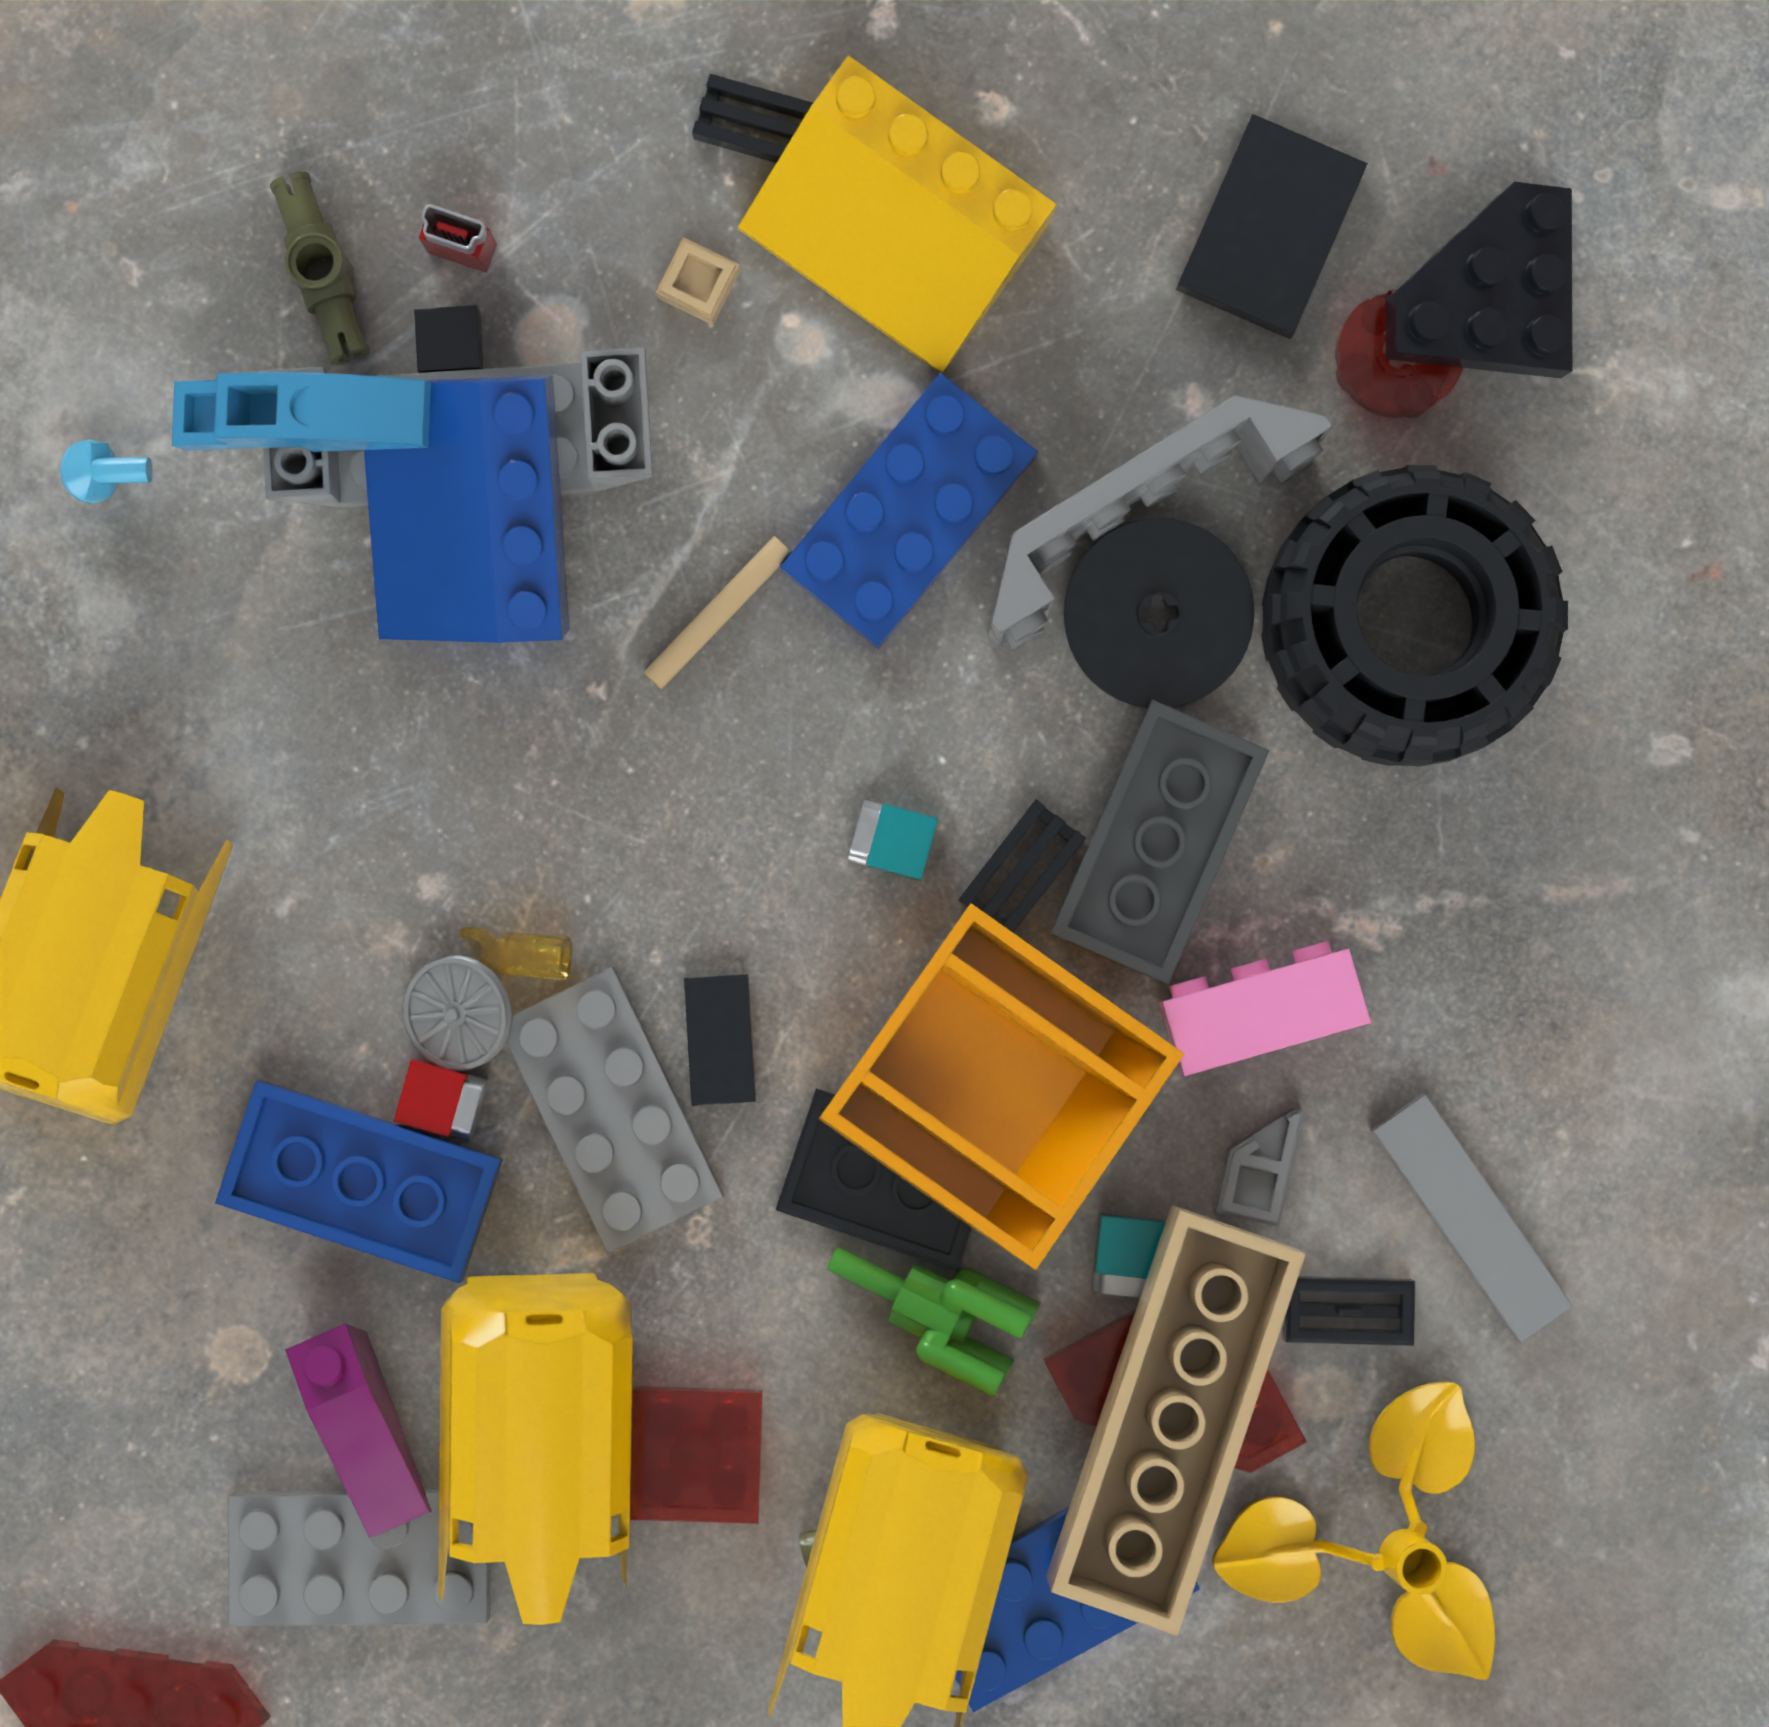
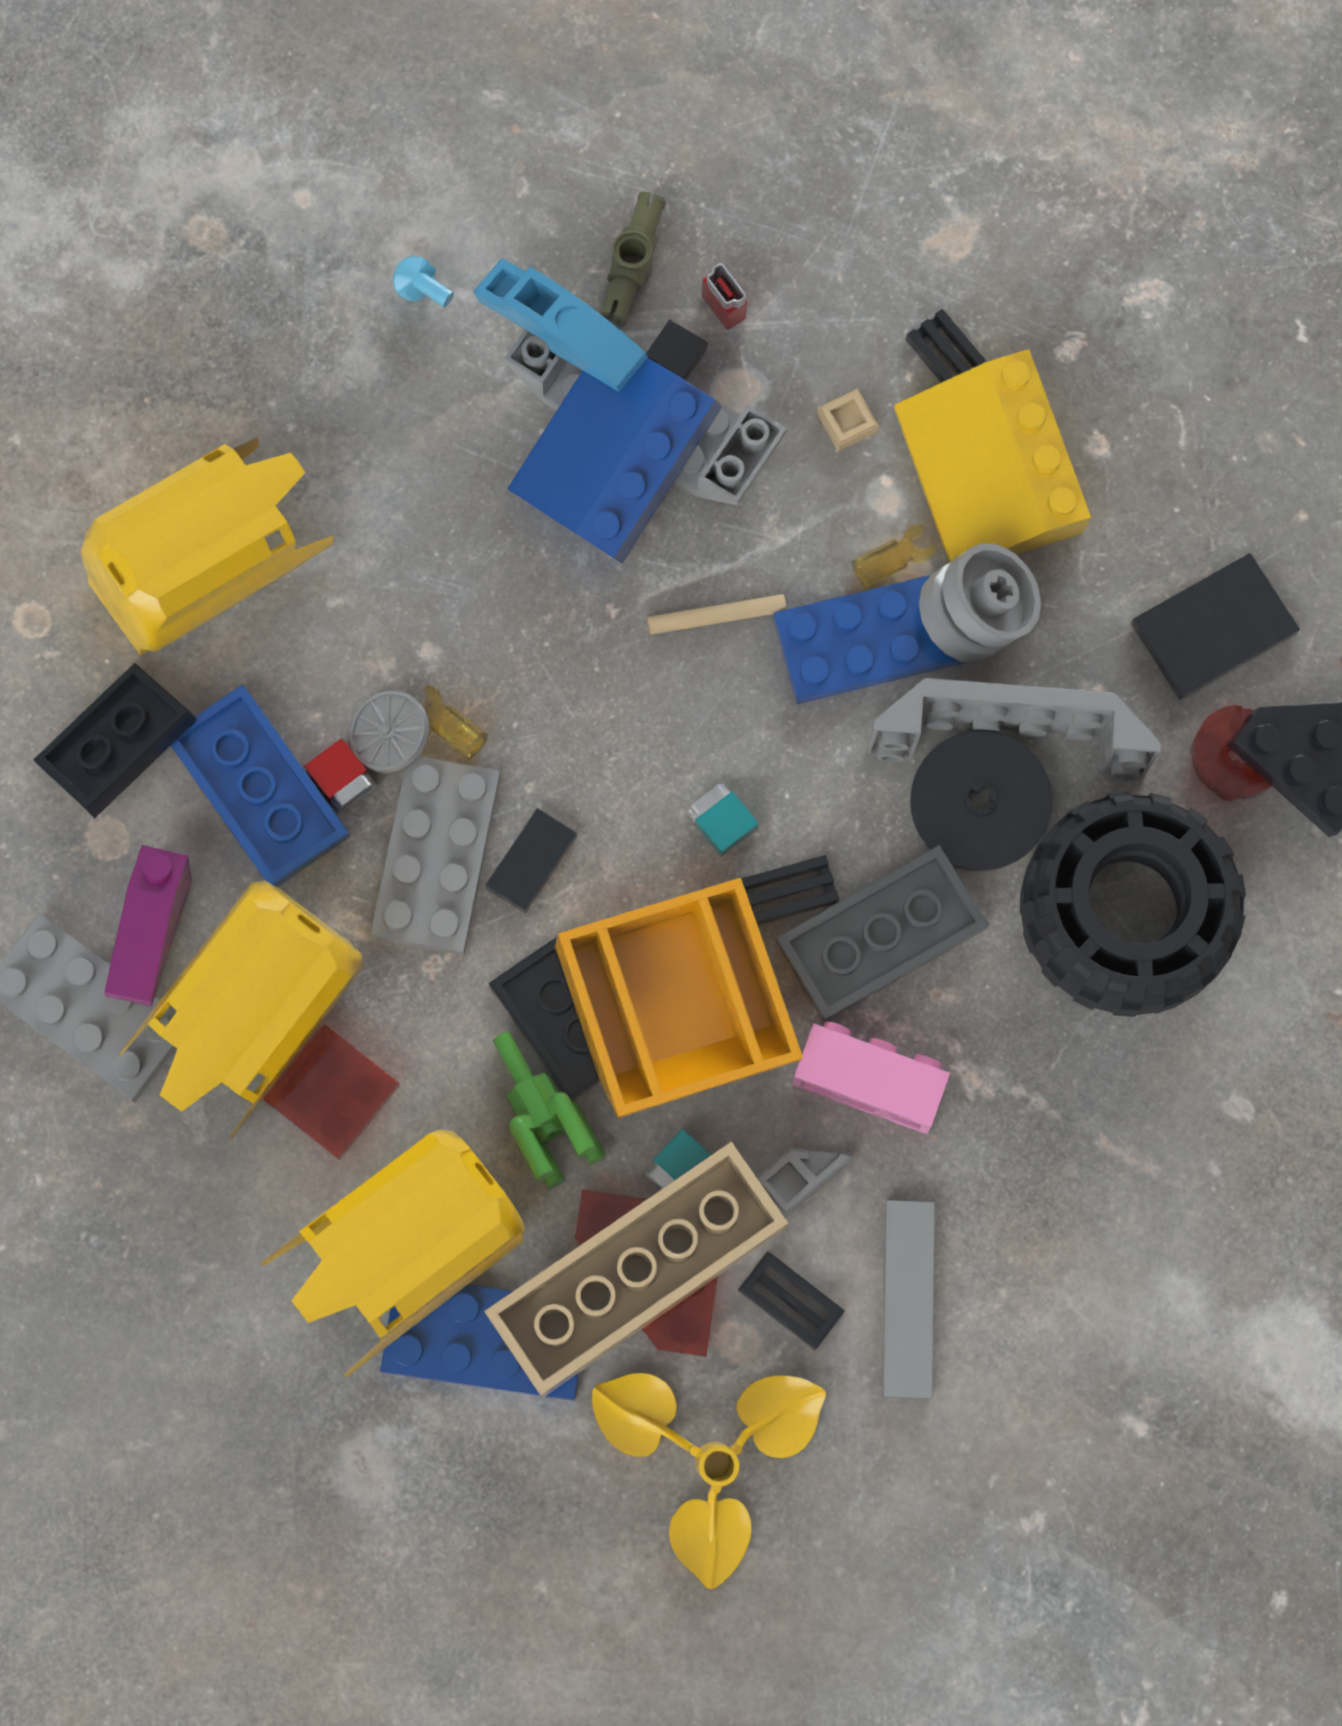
camera: 35 degrees right, 10 degrees down
(163, 1247) = (115, 740): none -> black tile
(862, 409) = (891, 558): none -> clear yellow bar
(1005, 394) = (980, 603): none -> light grey wheel

